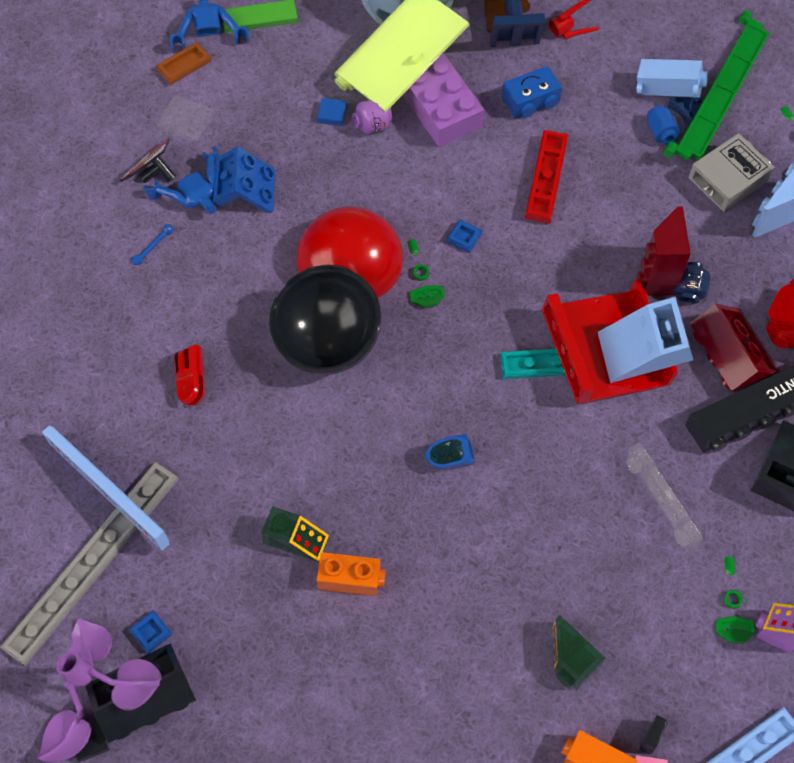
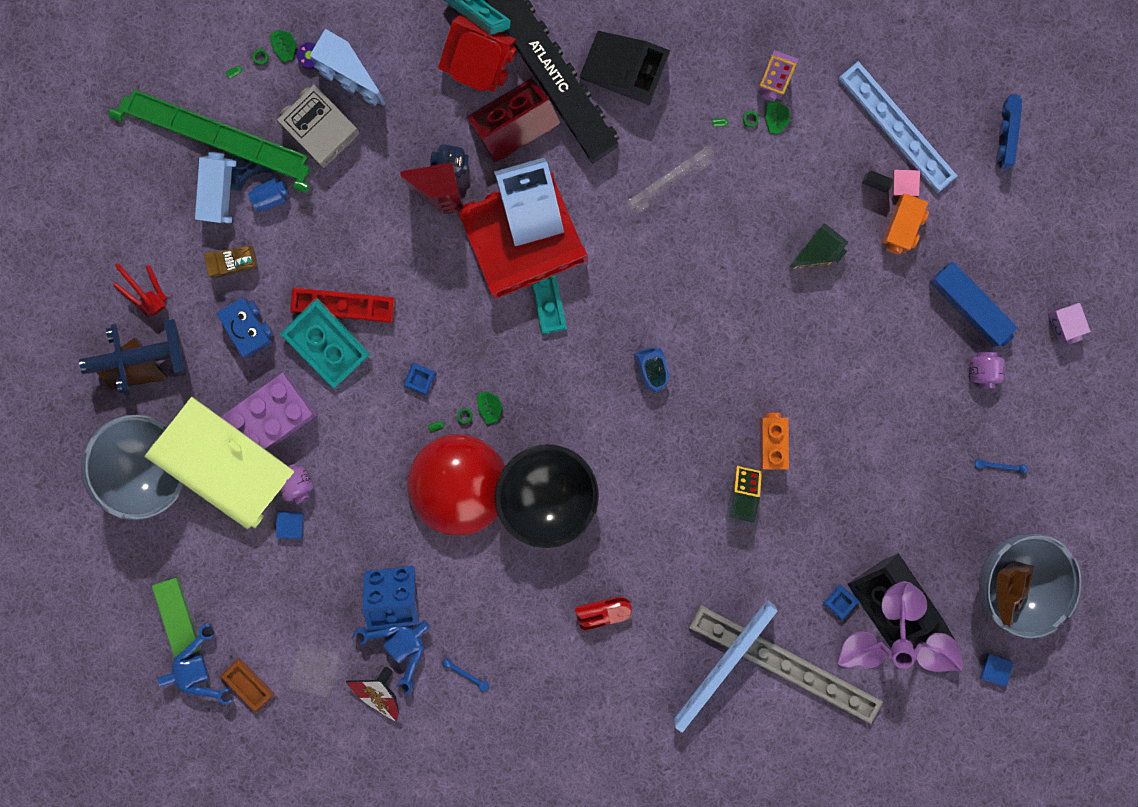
camera: 95 degrees left, 25 degrees up
(509, 155) = (325, 343): none -> teal tile
(597, 86) = (230, 261): none -> pearl gold leg

